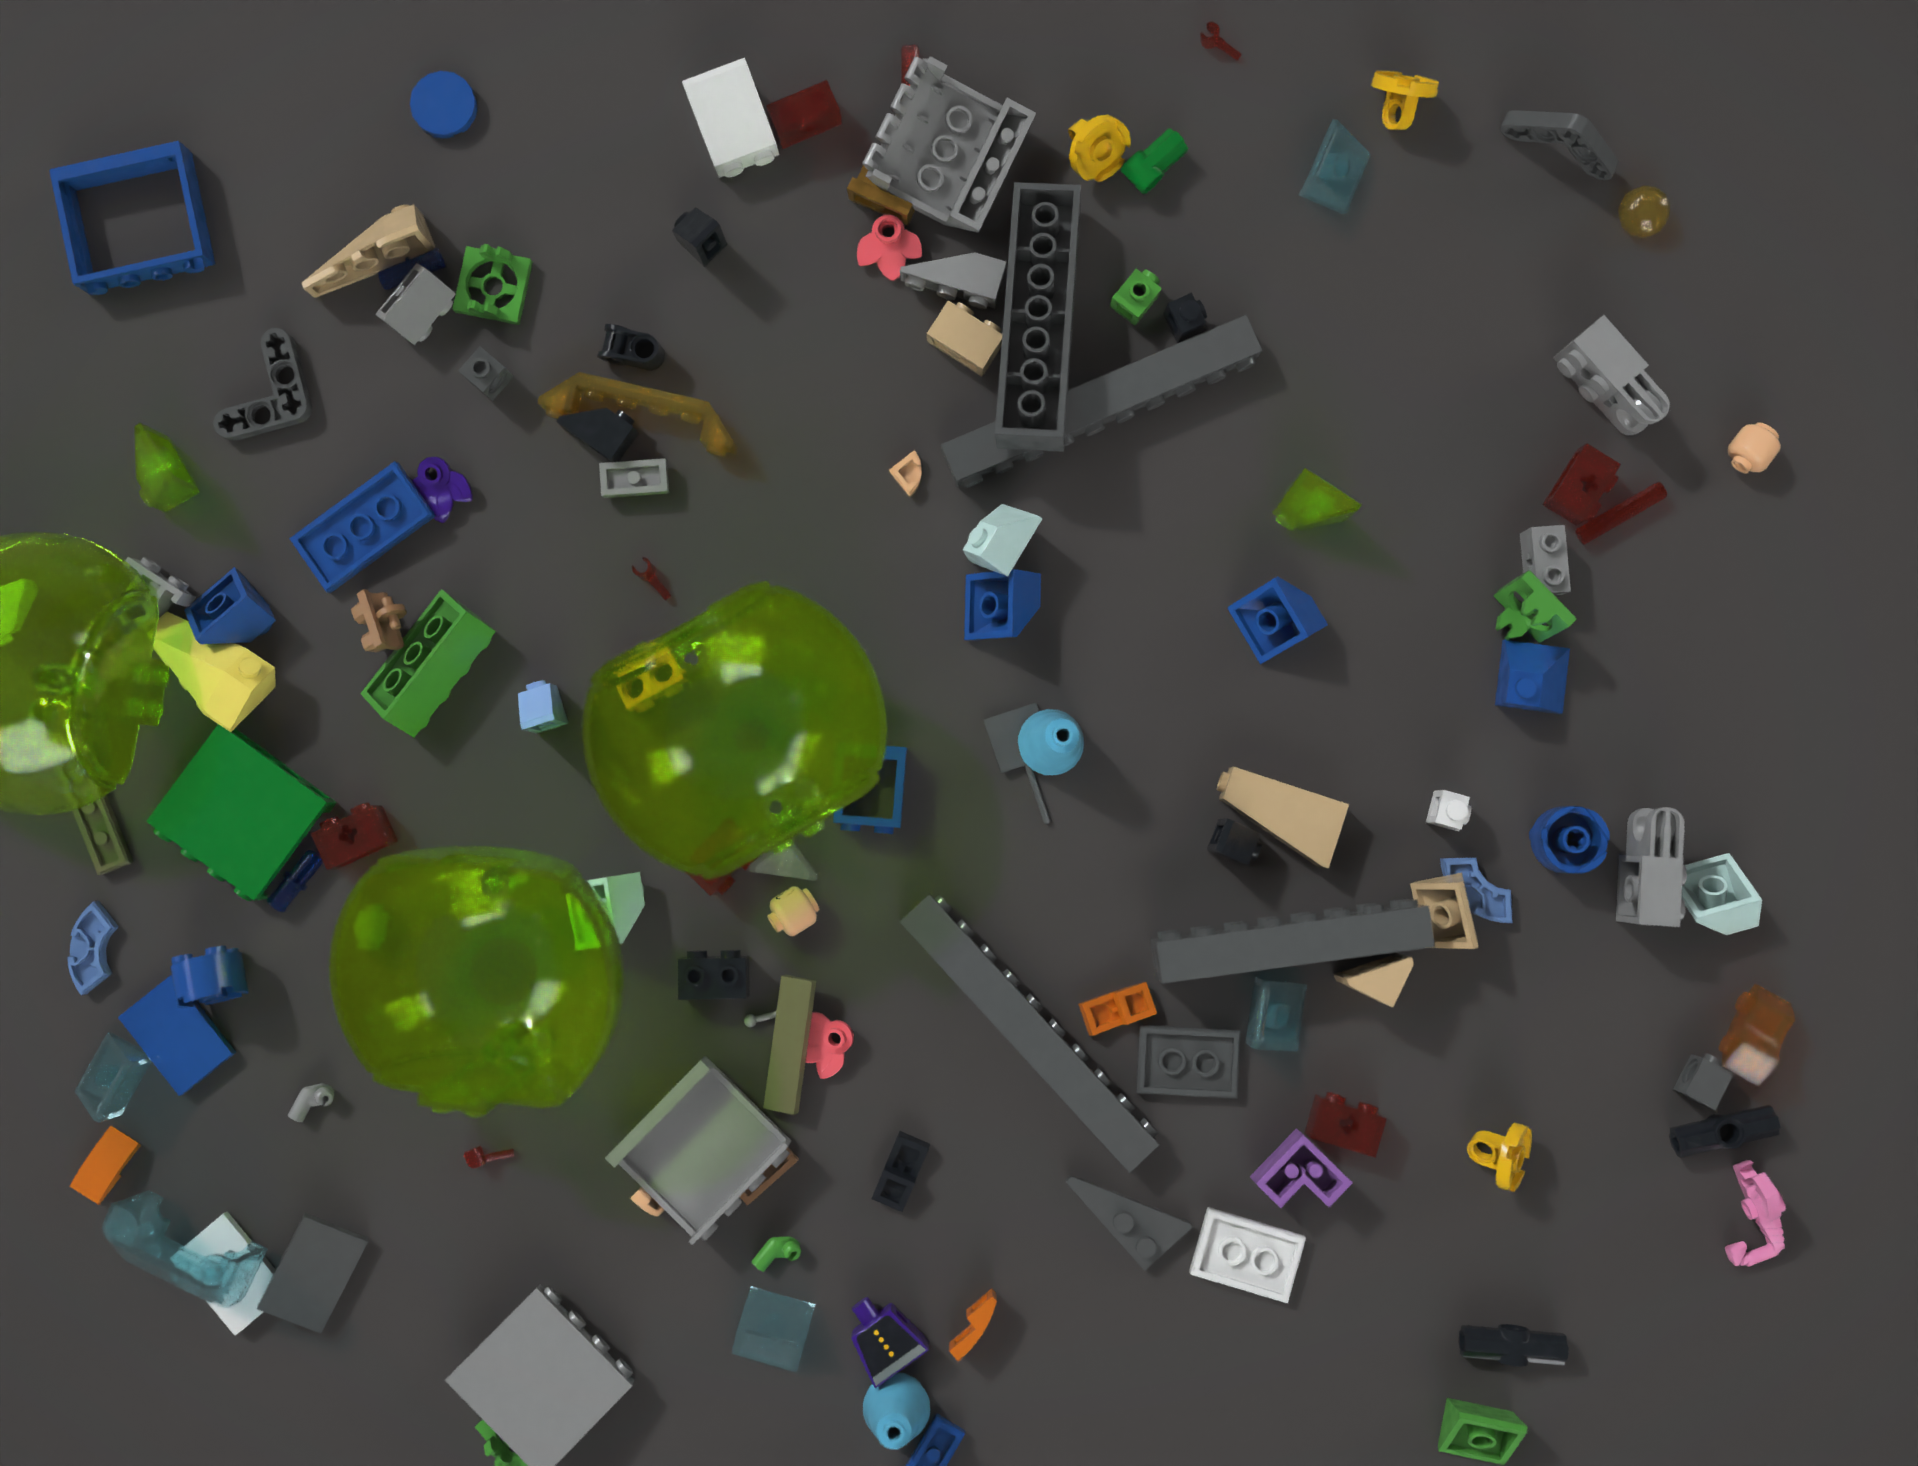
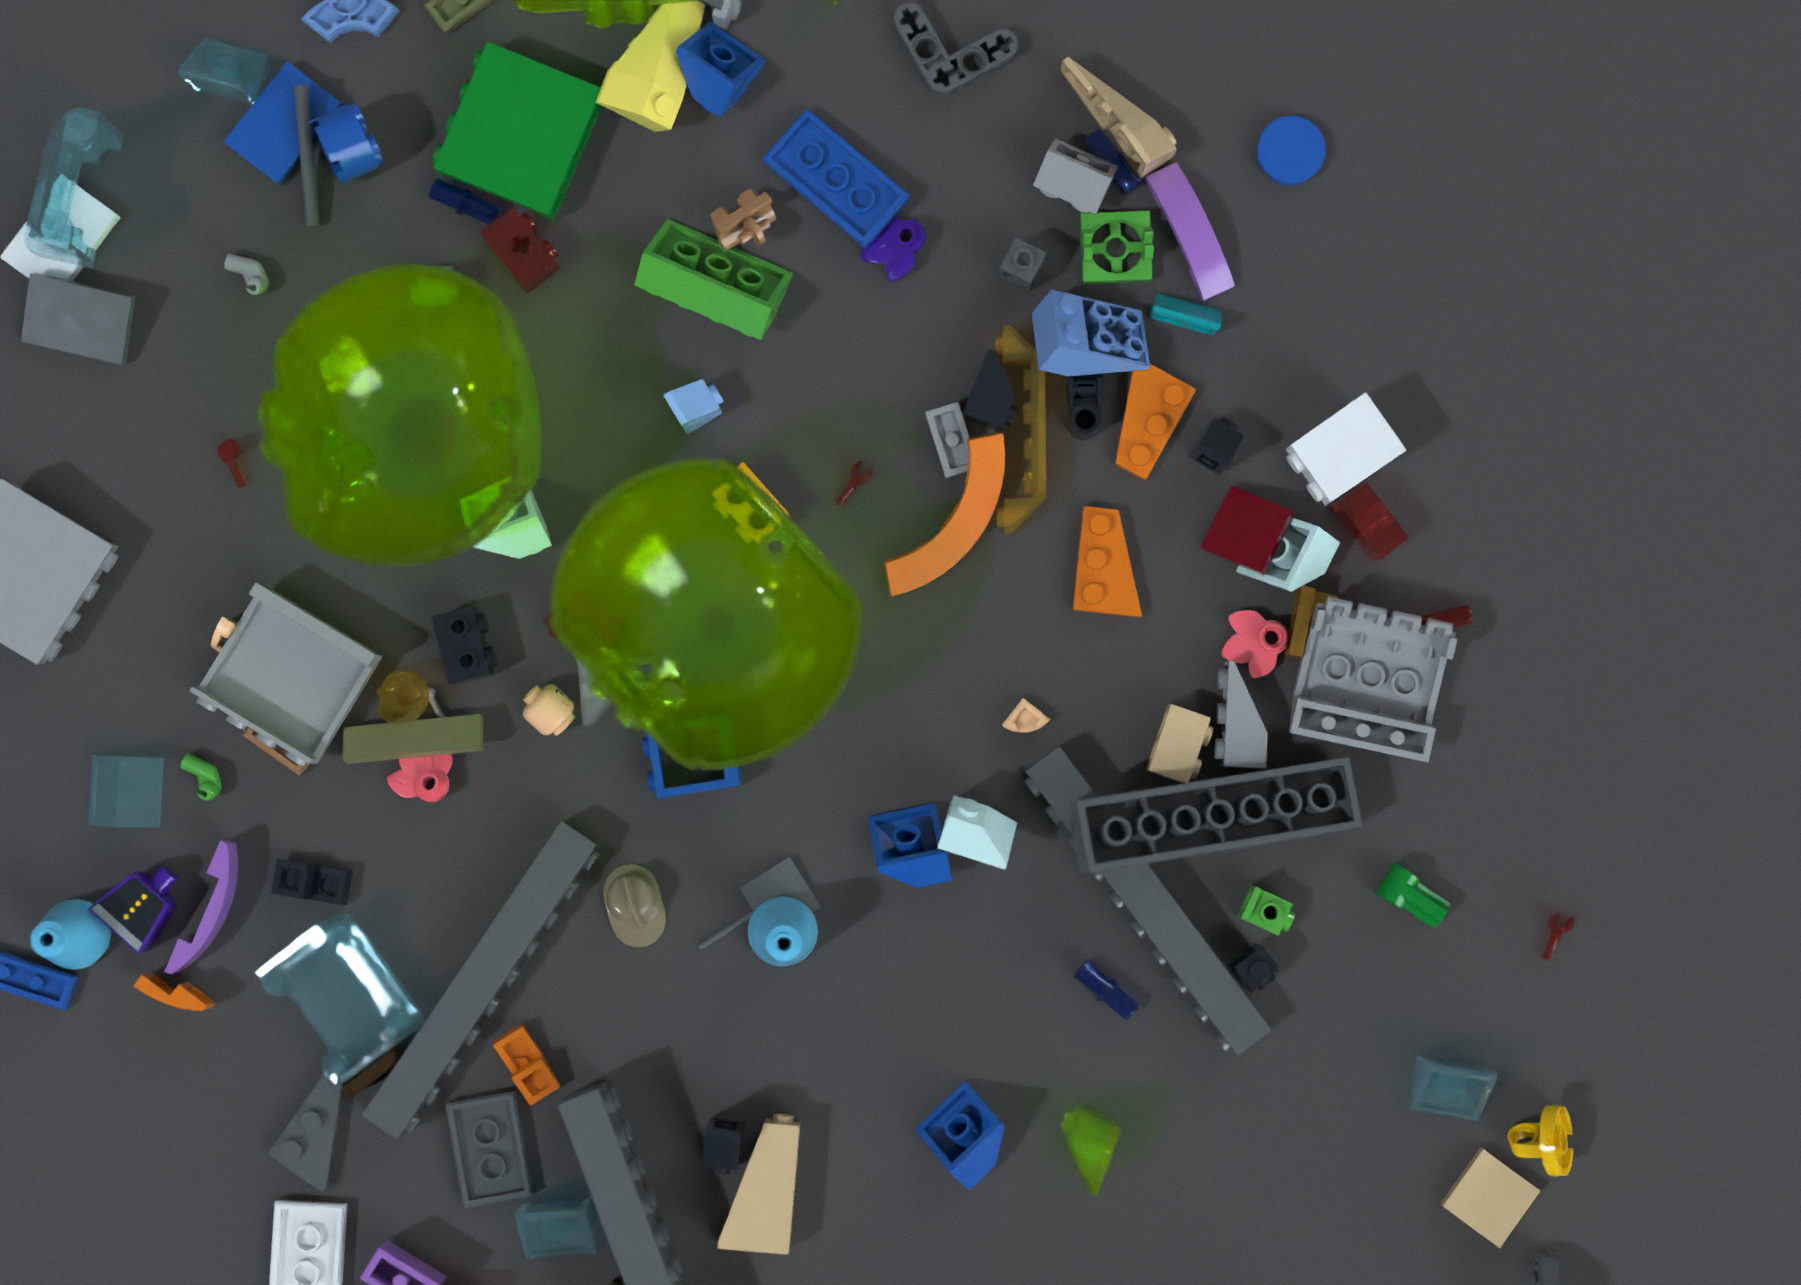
camera: 75 degrees right, 0 degrees up
(104, 1164) = (138, 85): orange slope -> none
(212, 1018) = (306, 155): none -> dark grey bar
(494, 210) = (1191, 230): none -> medium lavender slope
(567, 328) = (1088, 336): none -> medium blue slope
(572, 236) = (1186, 314): none -> teal slope
(656, 290) = (1149, 419): none -> orange wing
(715, 485) = (964, 524): none -> orange tile
(748, 1044) = (403, 697): none -> clear yellow hair
(784, 227) = (1247, 530): none -> dark red tile
(787, 368) = (1103, 566): none -> orange wing
(812, 195) = (1299, 558): none -> light aqua slope
(867, 1249) = (225, 867): none -> medium lavender slope
(994, 874) = (634, 905): none -> dark tan piece
(1013, 1164) = (343, 995): none -> clear light blue windscreen
(1090, 1153) = (372, 1072): none -> dark brown tile
(1098, 147) = (1410, 834): yellow tile -> none
(1174, 458) = (1106, 990): none -> clear blue axle
(1441, 159) = (1490, 1197): none -> tan tile

